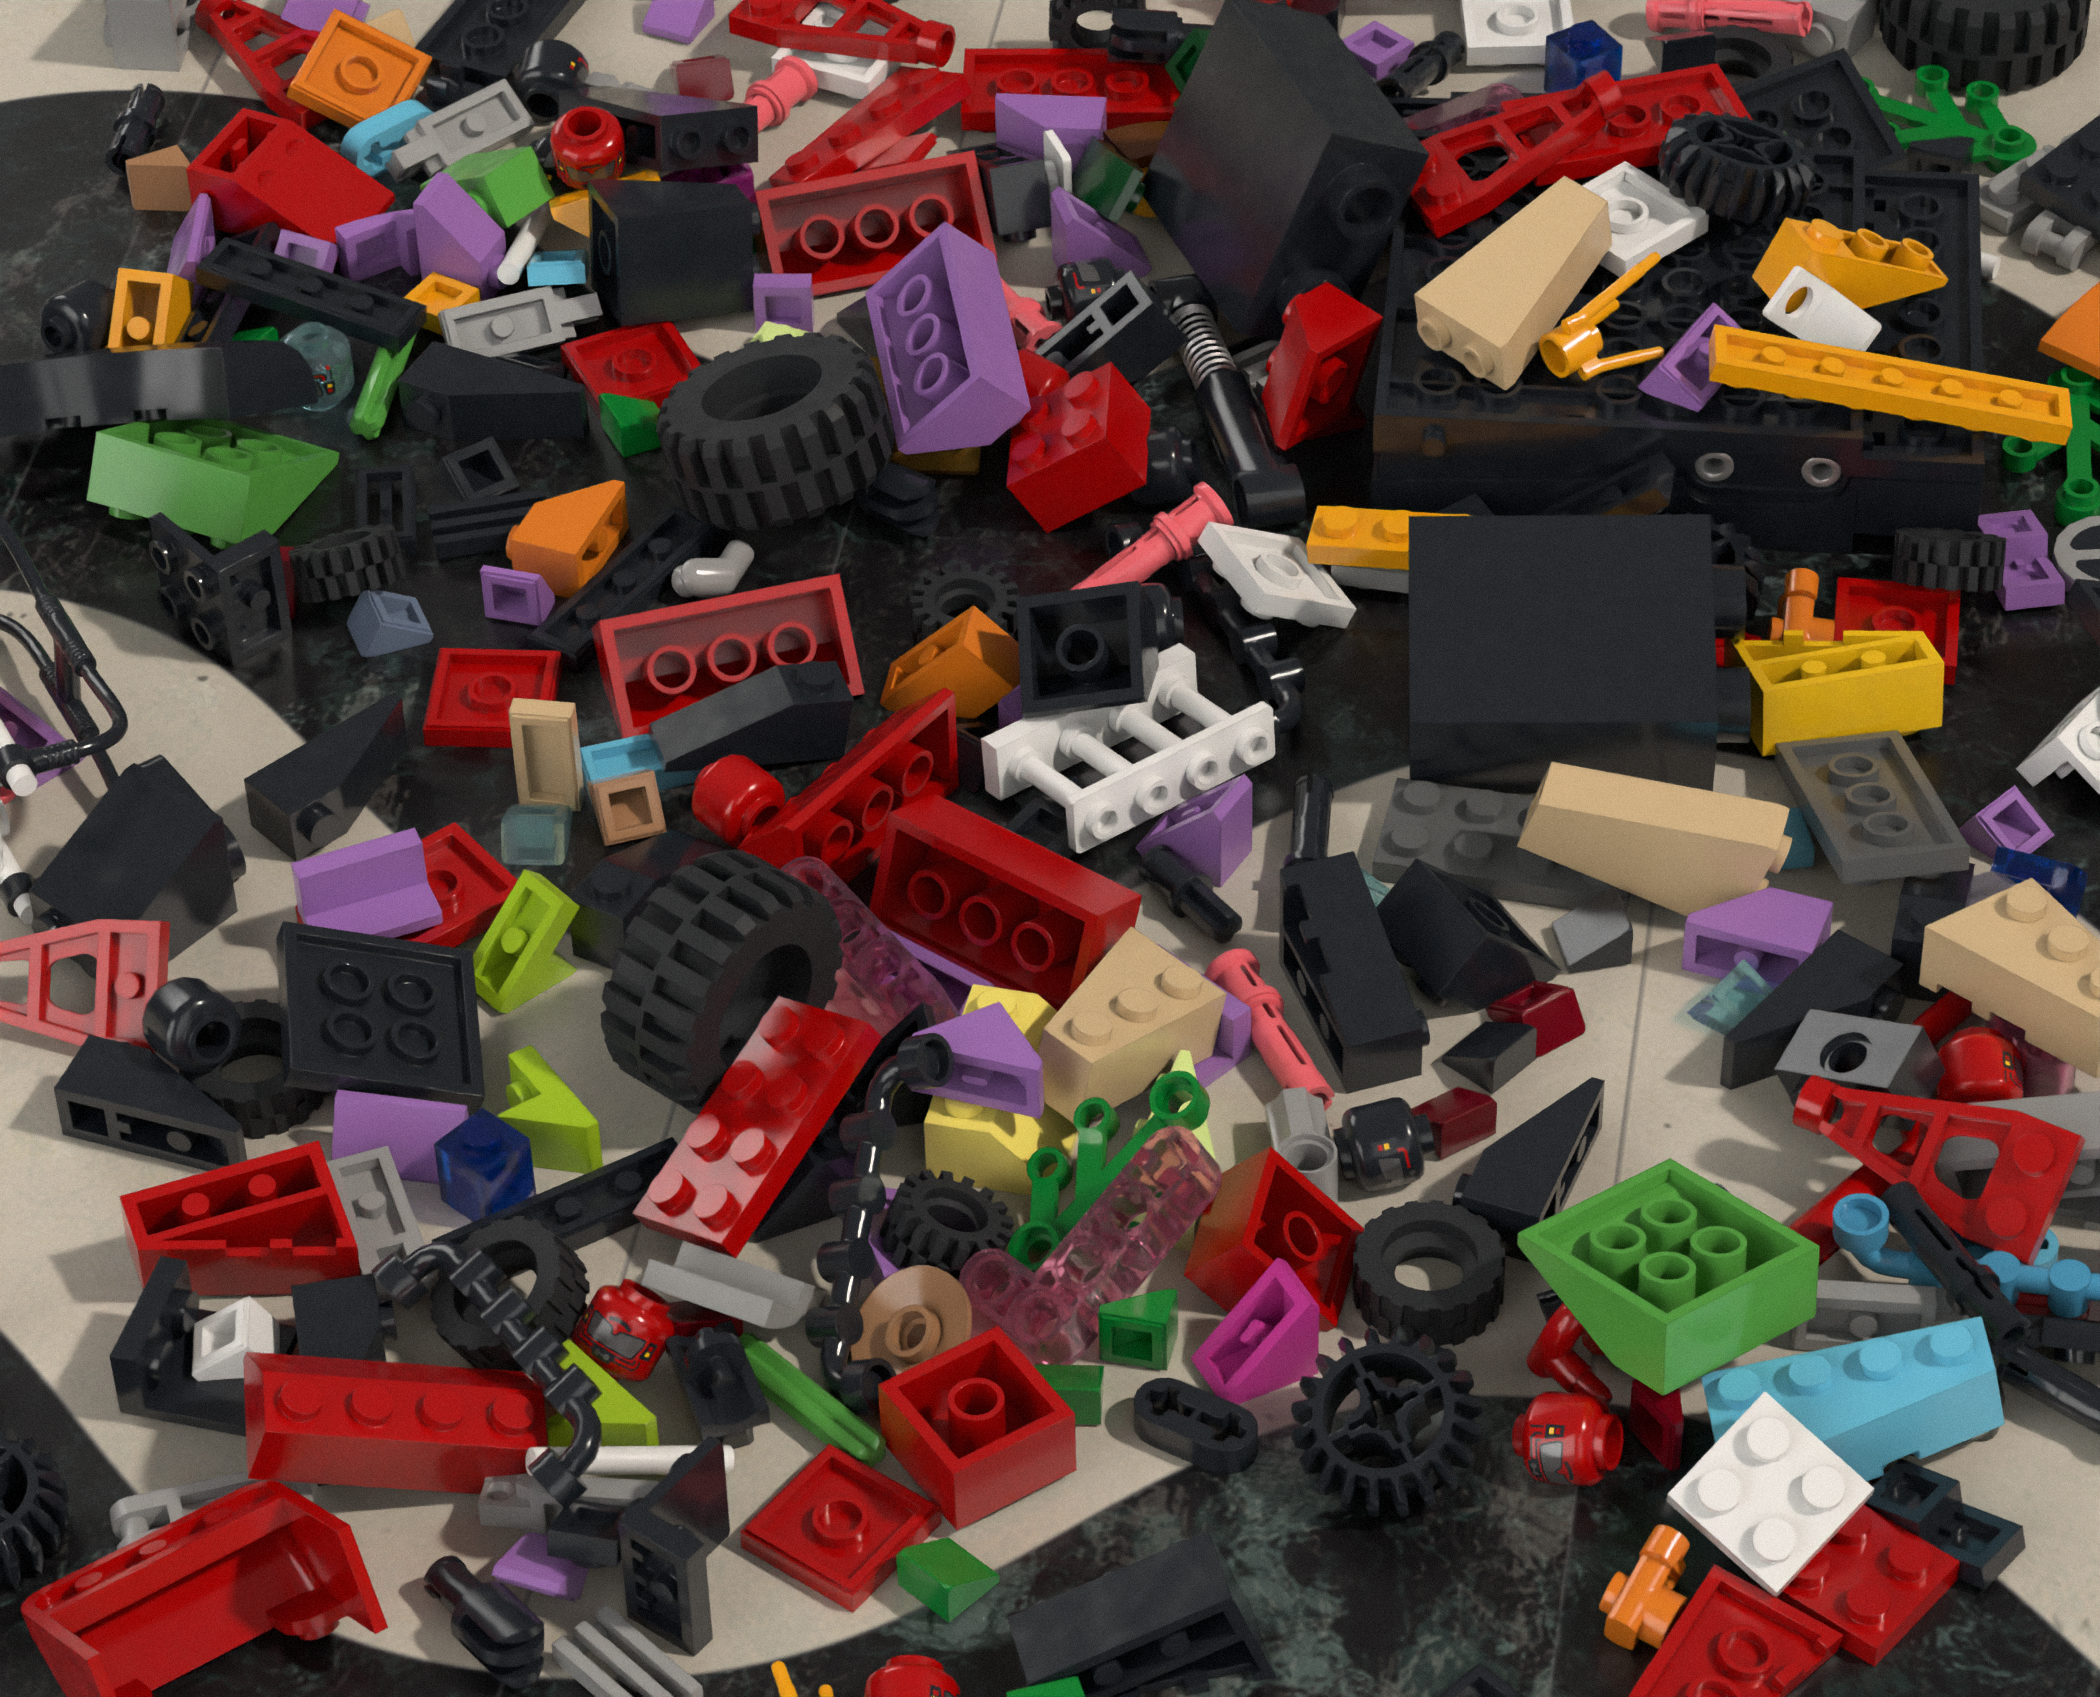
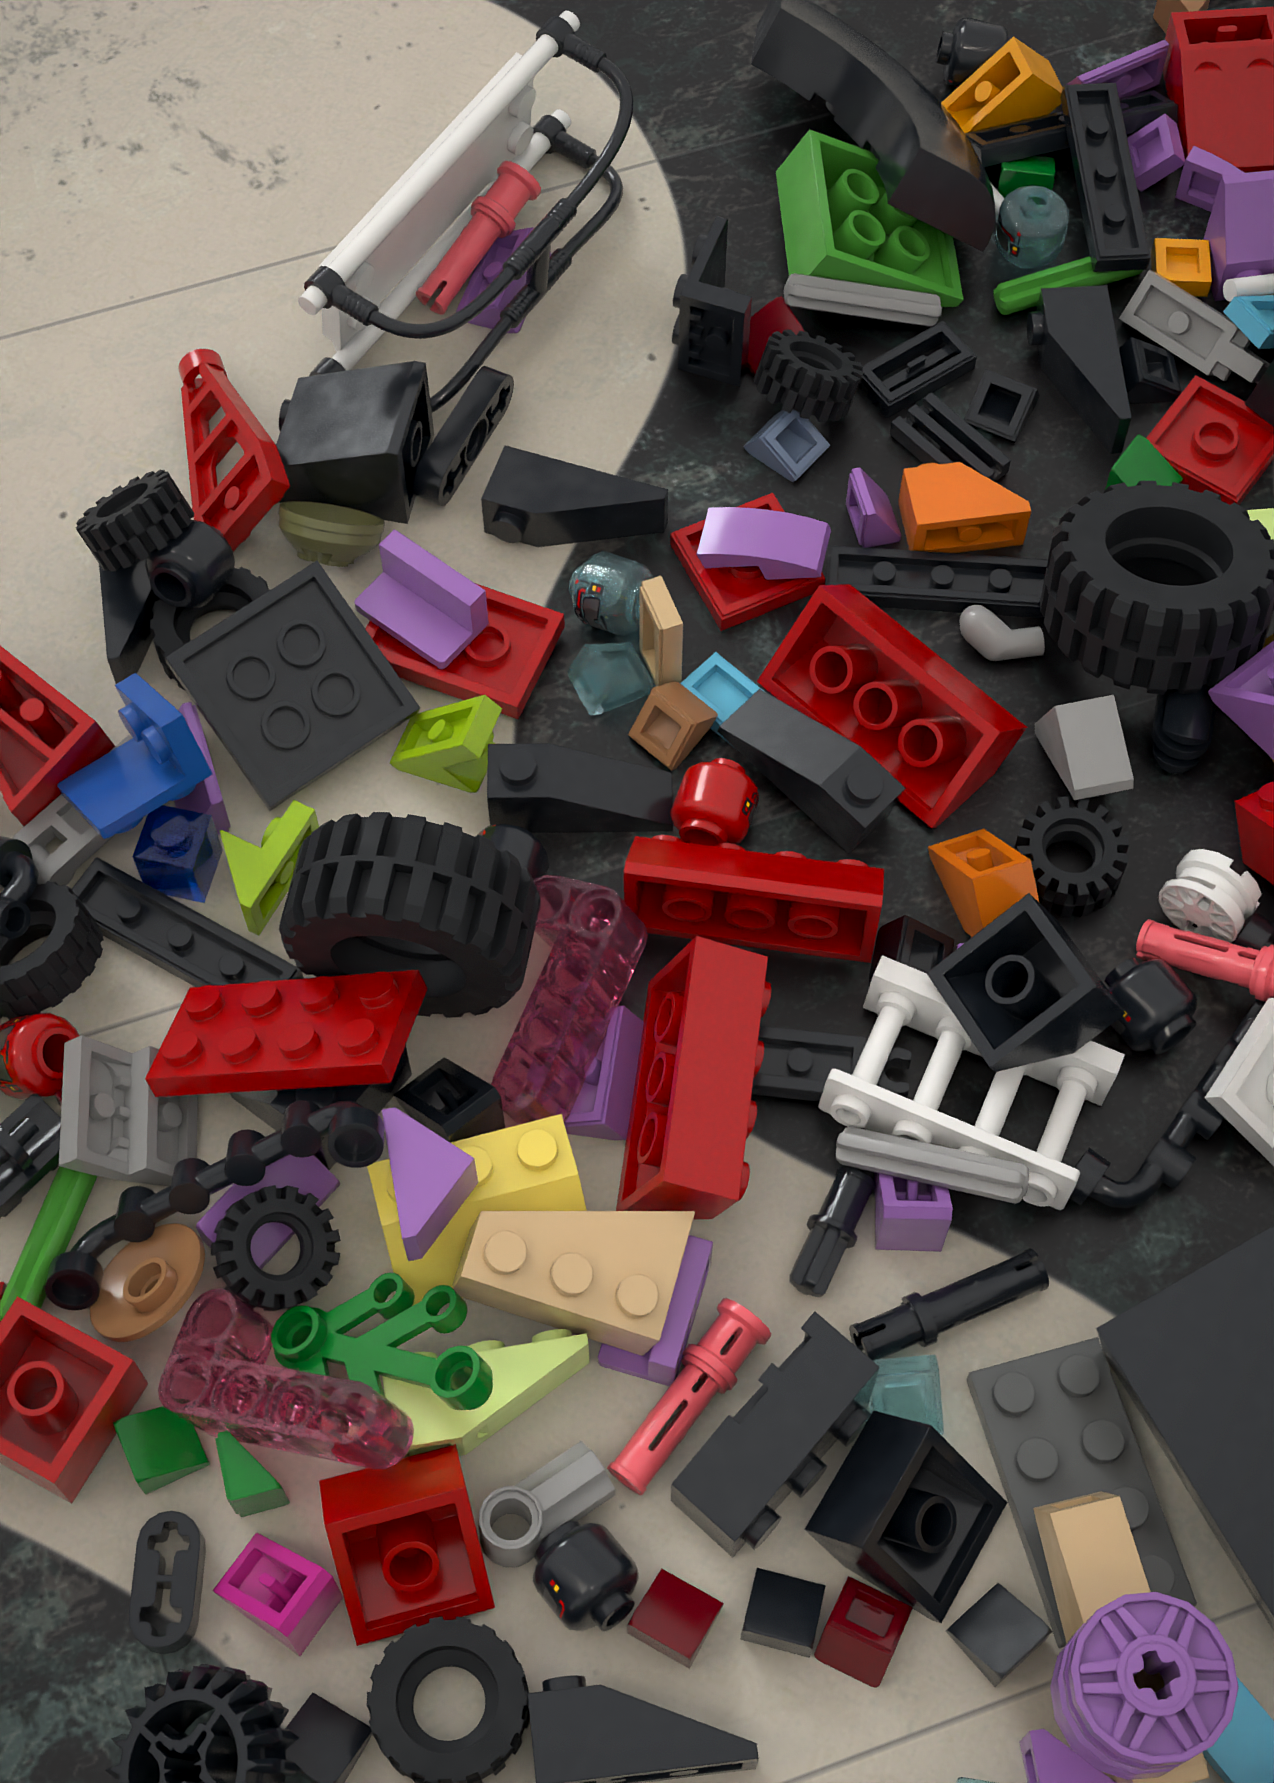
camera: 60 degrees right, 20 degrees up
(125, 1024) = (135, 520): none -> black tyre
(222, 944) = (329, 531): none -> olive piece
(294, 499) = (862, 300): none -> light grey axle
(391, 1121) = (143, 773): none -> blue bracket
(460, 783) = (608, 592): none -> clear light blue head
(498, 657) = (775, 541): none -> medium lavender slope
(881, 549) = (1087, 747): none -> light grey slope
(1072, 541) = (1209, 896): none -> white wheel
(1190, 786) = (932, 1164): none -> light grey axle
(1708, 780) = (1131, 1728): none -> medium lavender wheel

